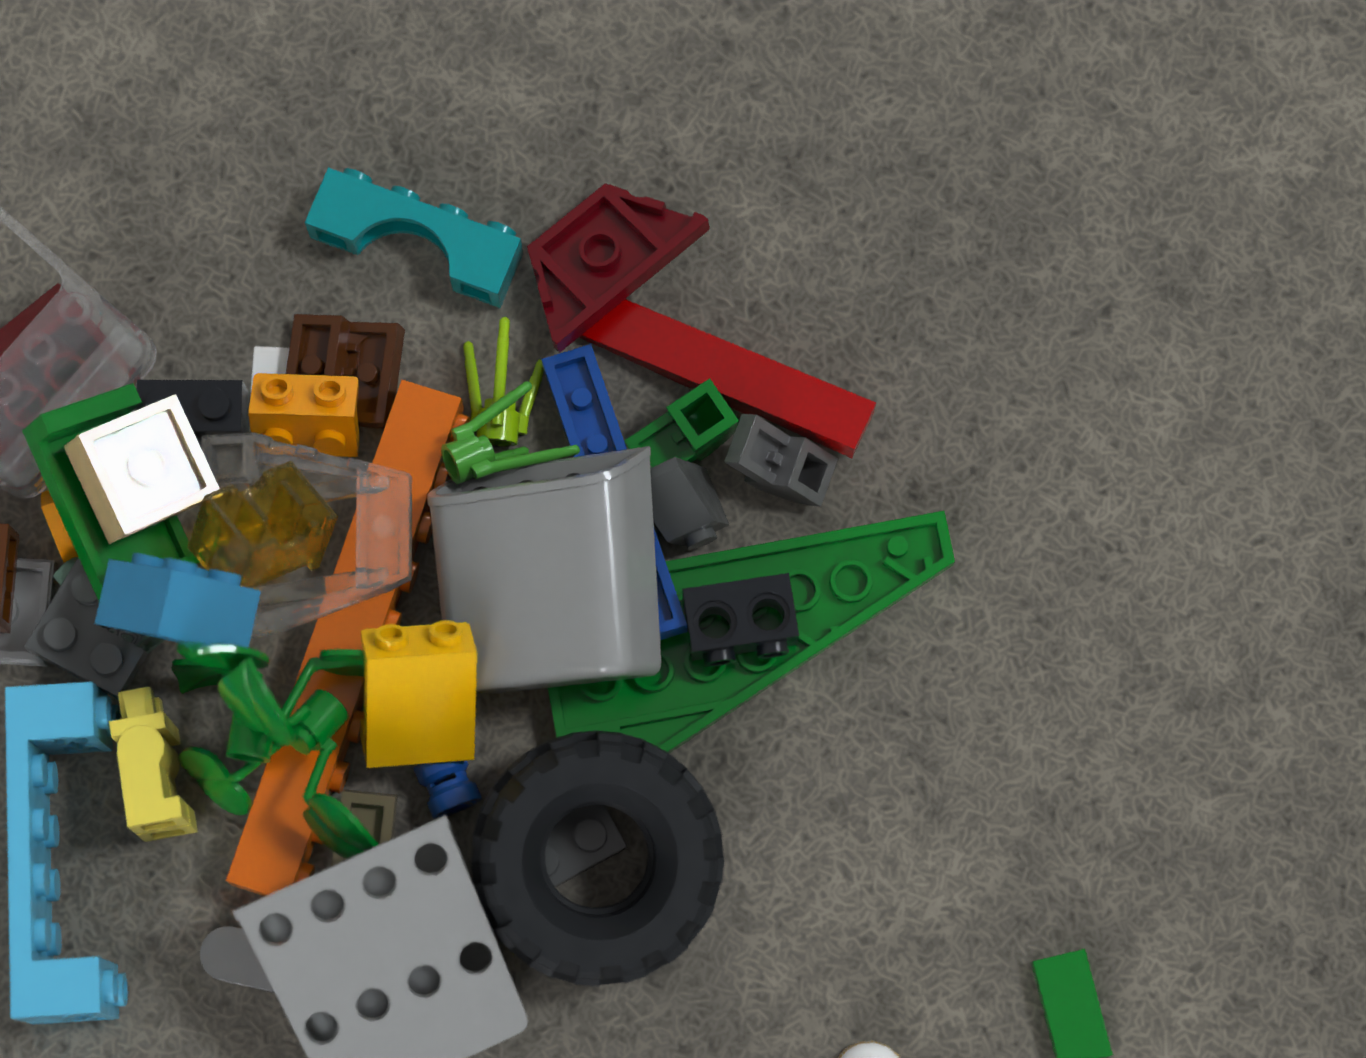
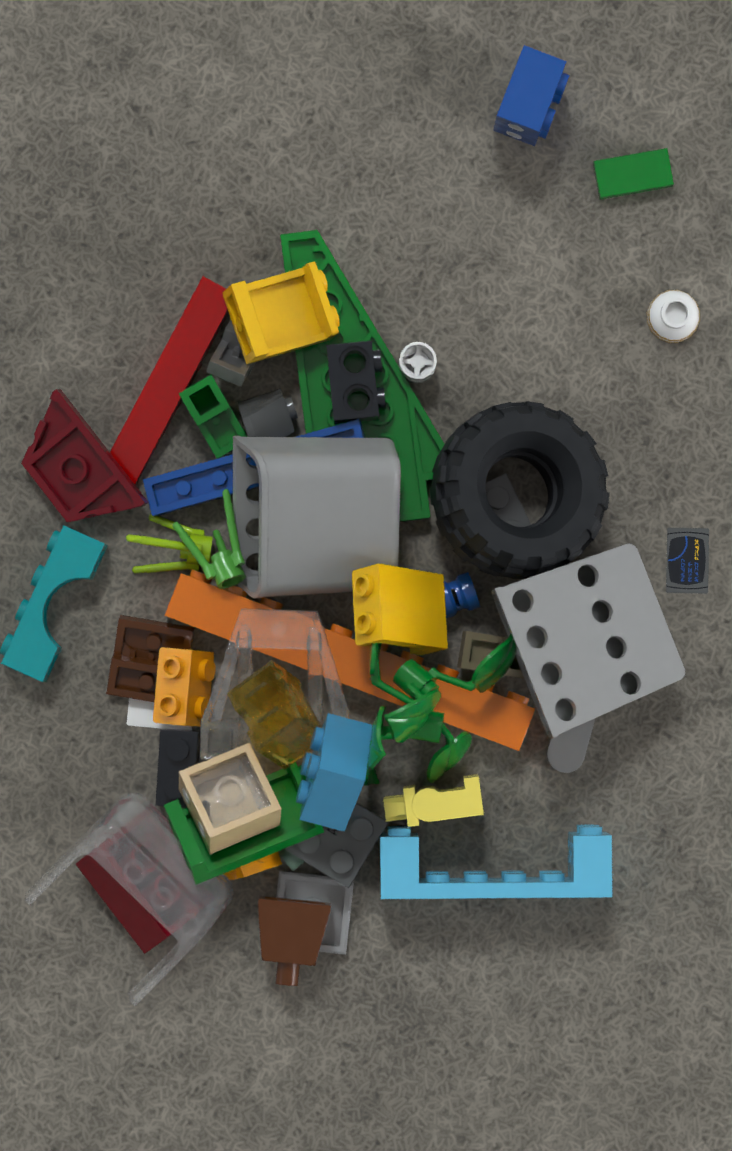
camera: 85 degrees left, 10 degrees up
(776, 701) = (417, 355): none -> white wheel
(831, 512) = (281, 313): none -> yellow panel
(1168, 847) = (528, 98): none -> blue piece

